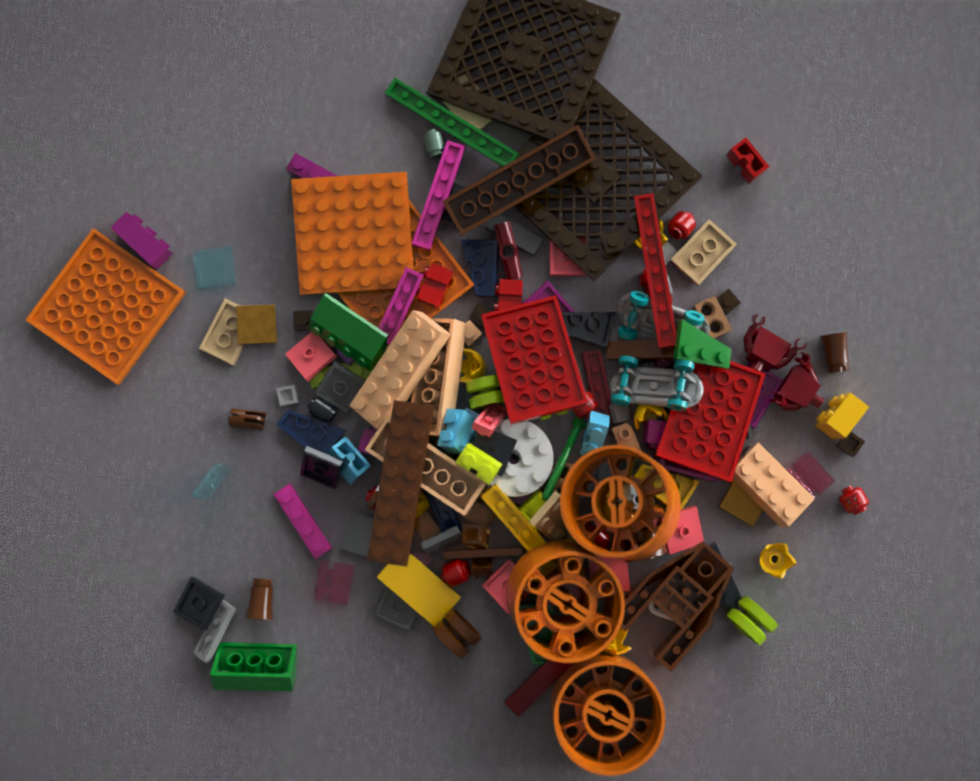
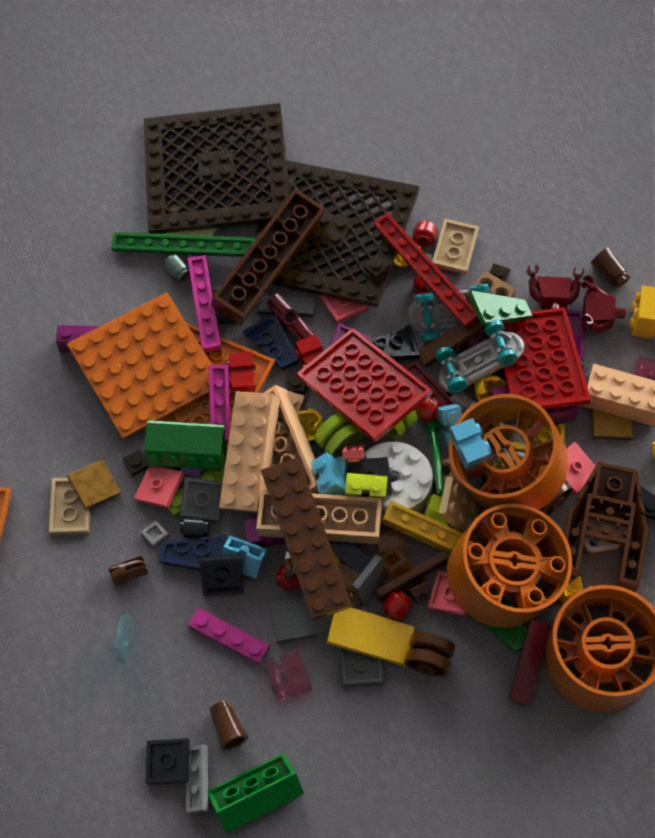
camera: 30 degrees left, 20 degrees down
(214, 267) = (28, 457): clear light blue tile -> none
(586, 482) = (469, 444): none -> medium azure brick
(749, 160) = (449, 160): red brick -> none

